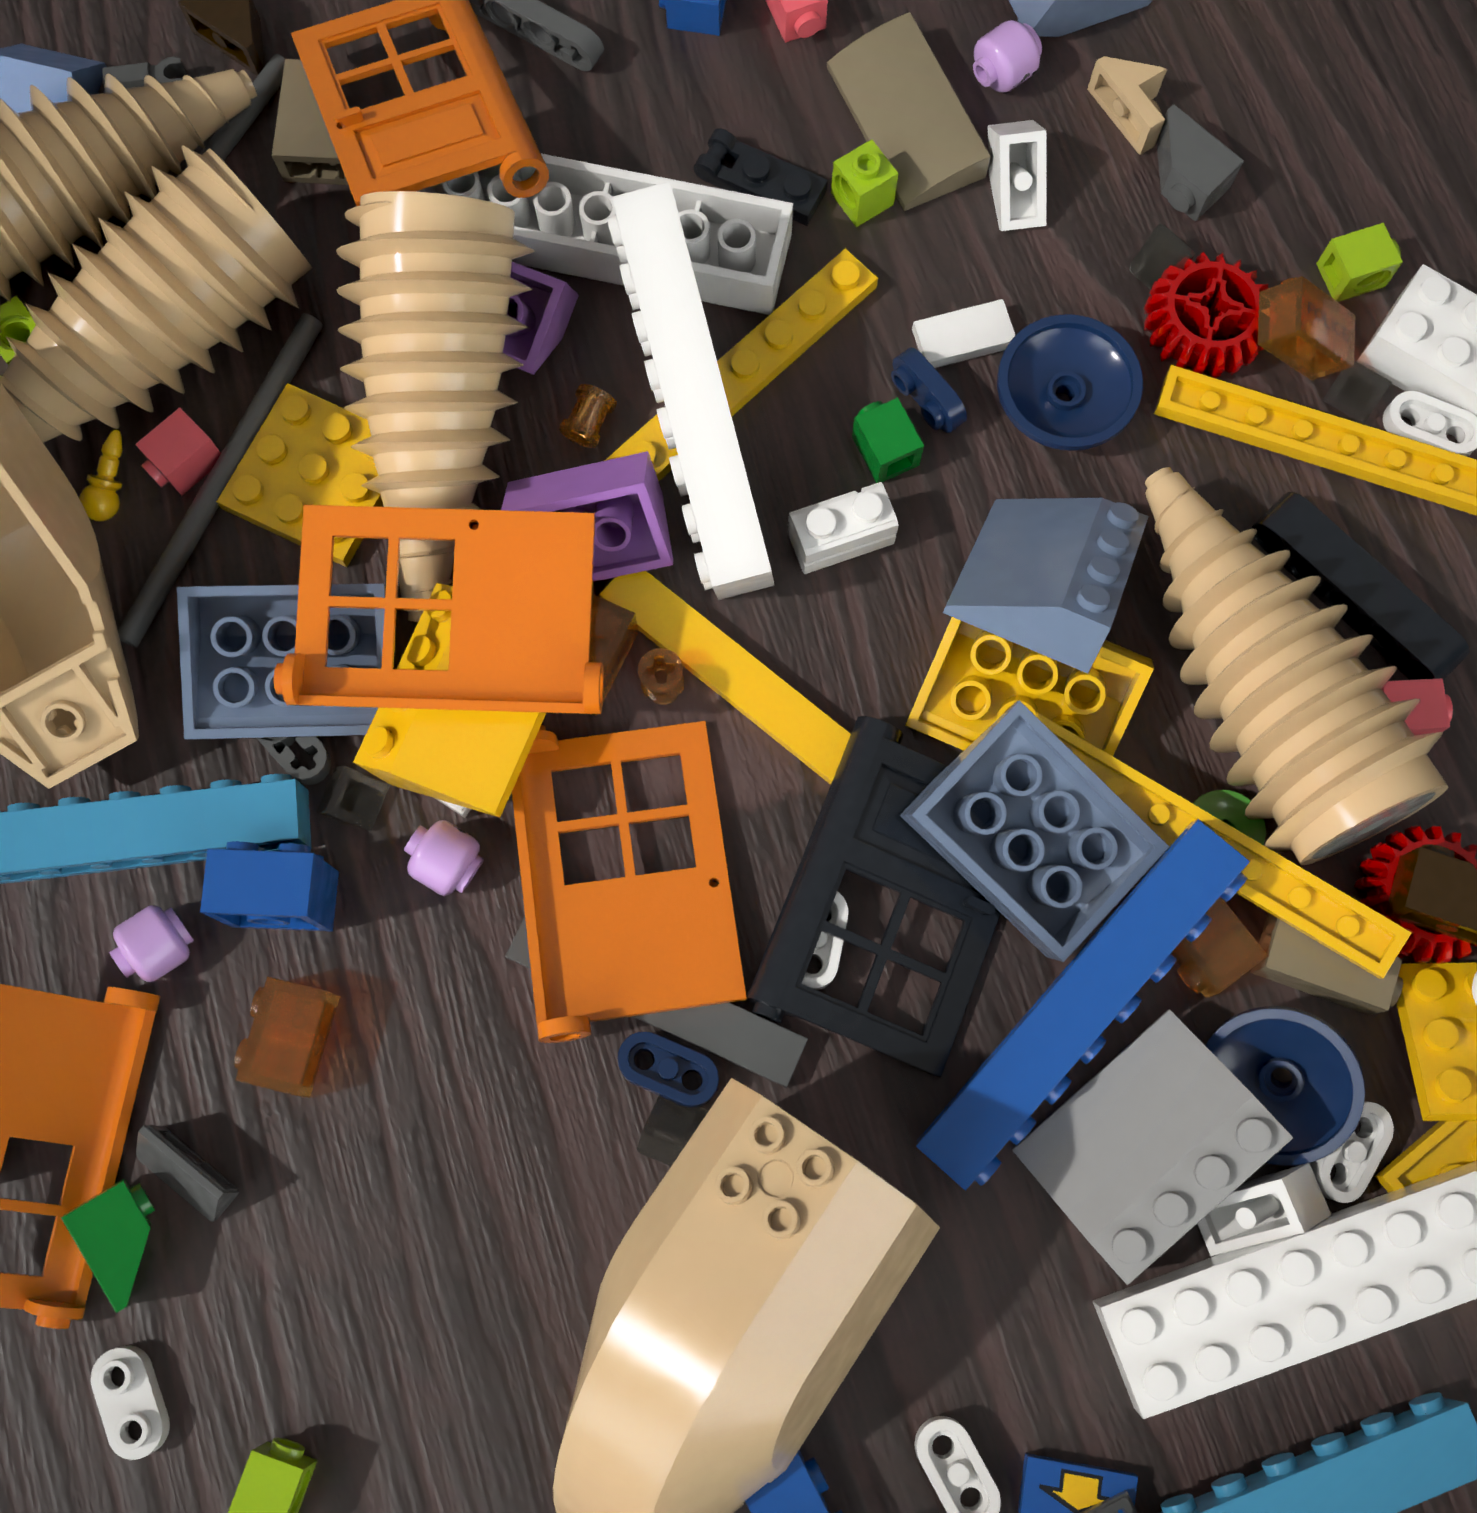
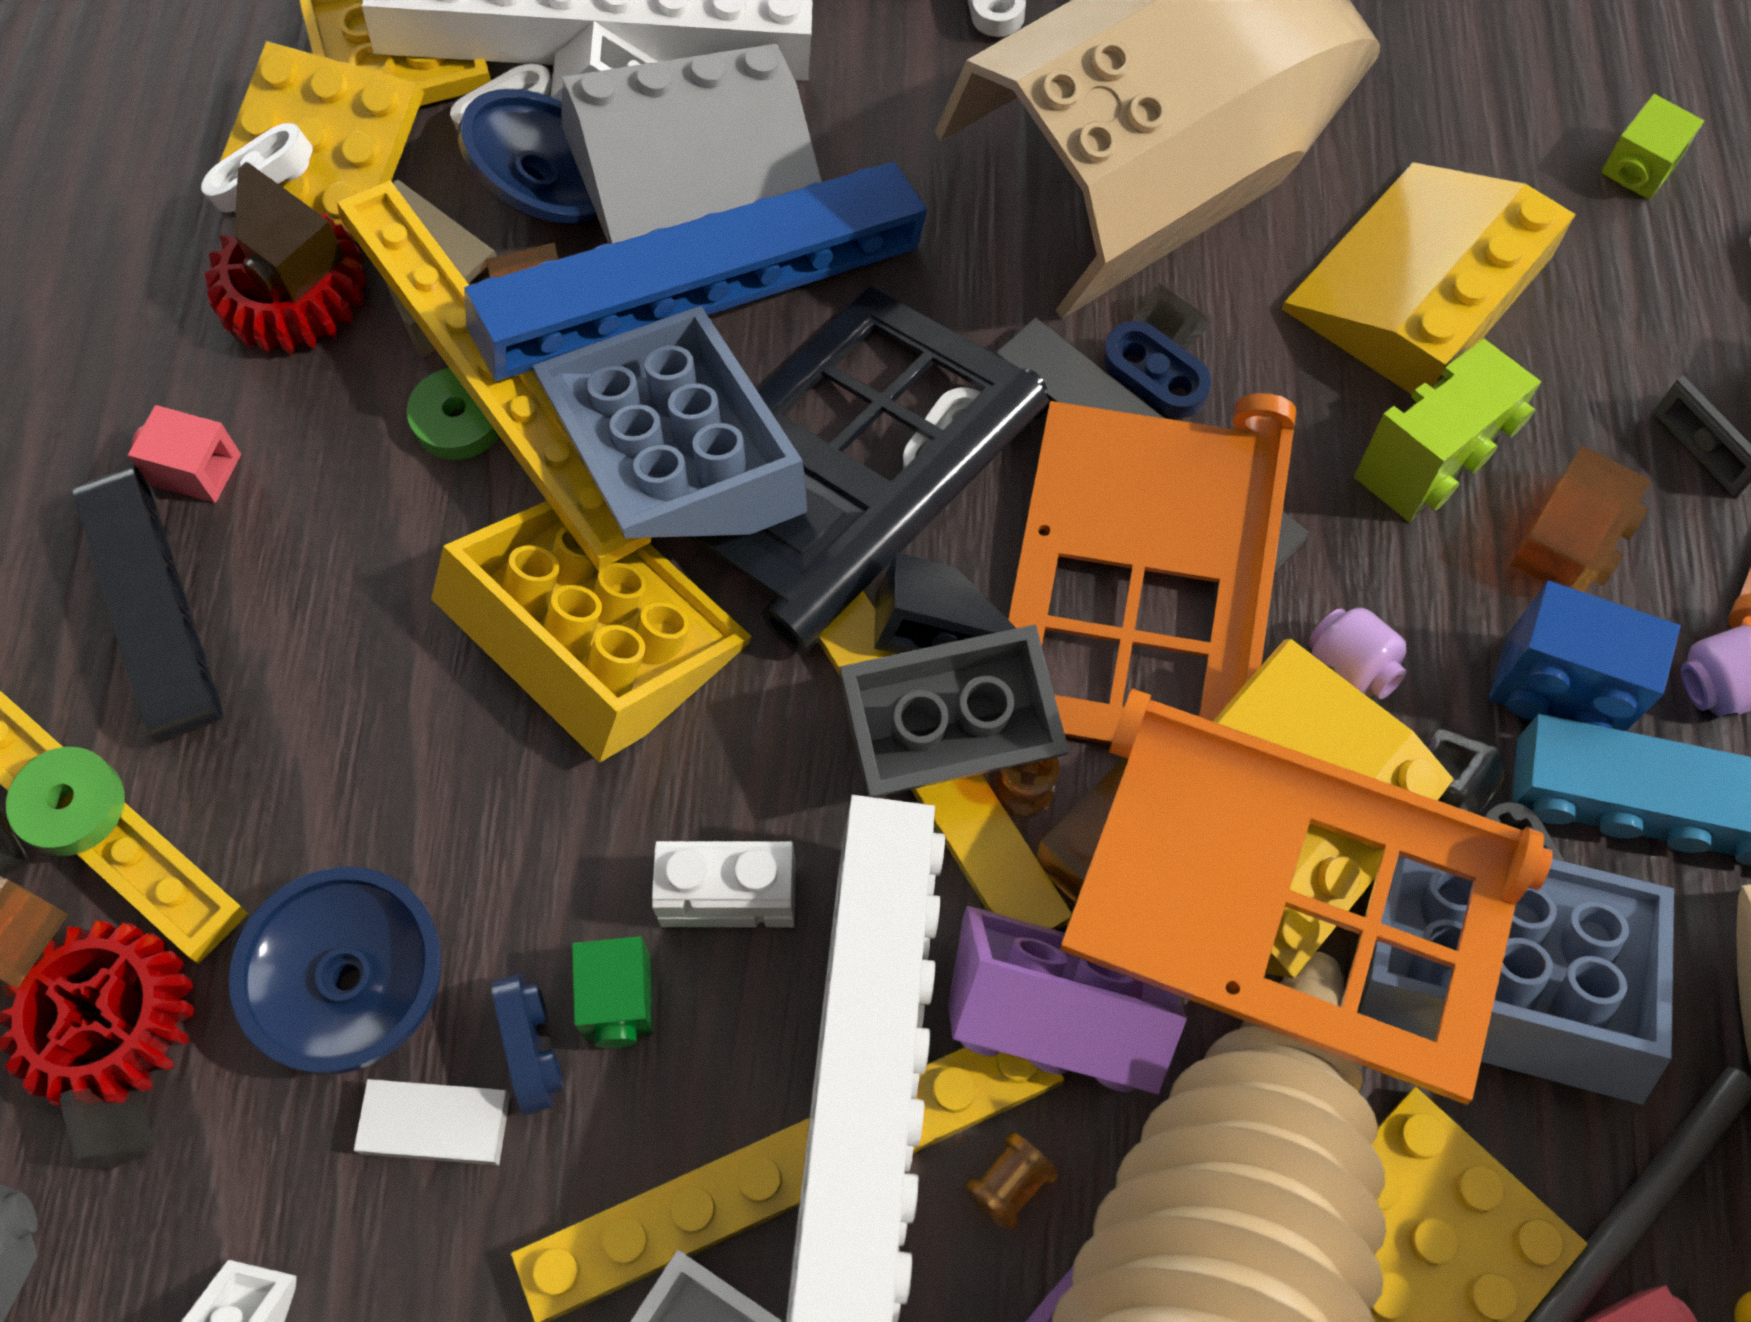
camera: 160 degrees left, 10 degrees down
(407, 1090) = (1447, 430): none -> lime wedge
(457, 1265) = (1429, 270): none -> yellow slope
(729, 680) = (952, 711): none -> dark grey slope
(772, 773) = (930, 606): none -> black slope
(1050, 574) = (500, 703): sand blue slope -> none
(1290, 689) = (301, 472): tan cone -> none
(1328, 409) = (45, 781): none -> bright green piece

